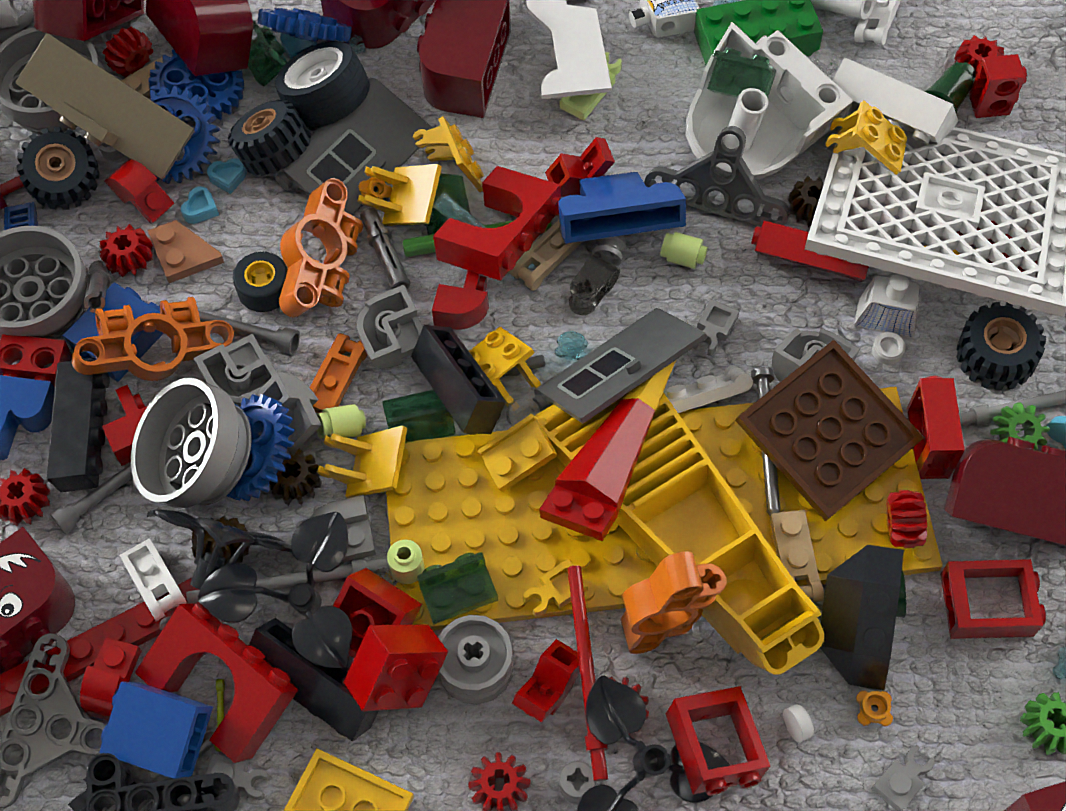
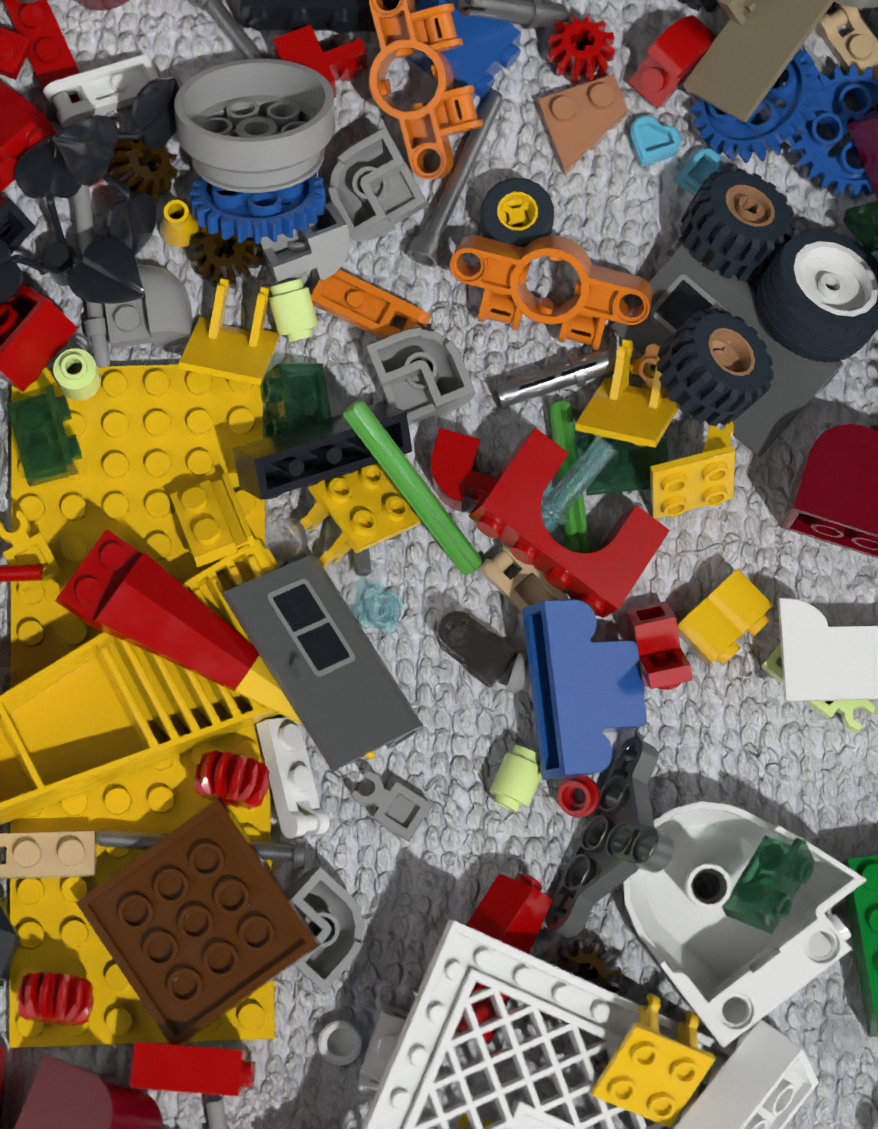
camera: 90 degrees right, 15 degrees up
(269, 513) = (178, 224): none -> yellow cone
(380, 133) = (715, 367): none -> black wheel
(479, 319) = (412, 486): none -> bright green axle
(550, 135) = (725, 618): none -> yellow brick
(697, 215) = (568, 800): none -> red plate
(719, 415) = (232, 778): none -> red gear

